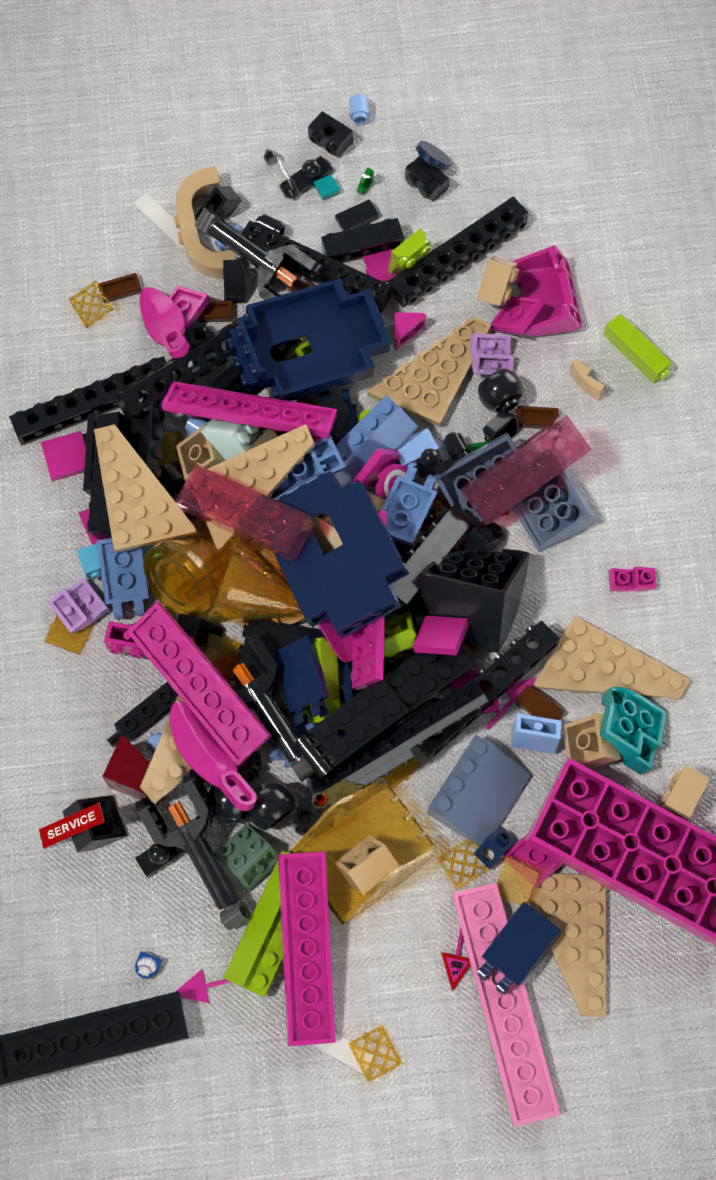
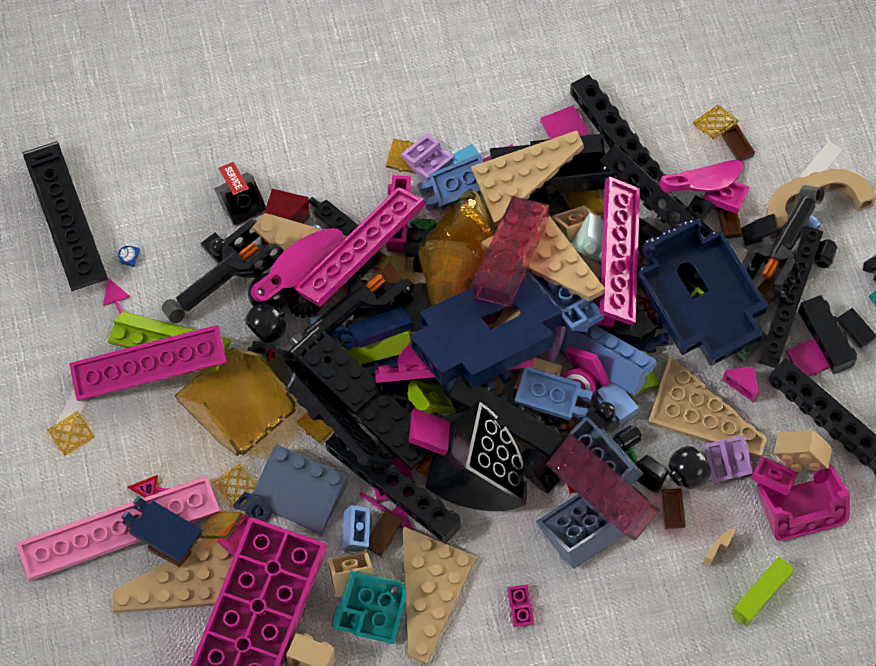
camera: 80 degrees right, 5 degrees down
(222, 201) = (839, 208): black slope -> none
(247, 856) = (222, 311): sand green bracket -> none
(366, 864) = (221, 399): tan brick -> none
(409, 252) = (818, 370): lime slope -> none

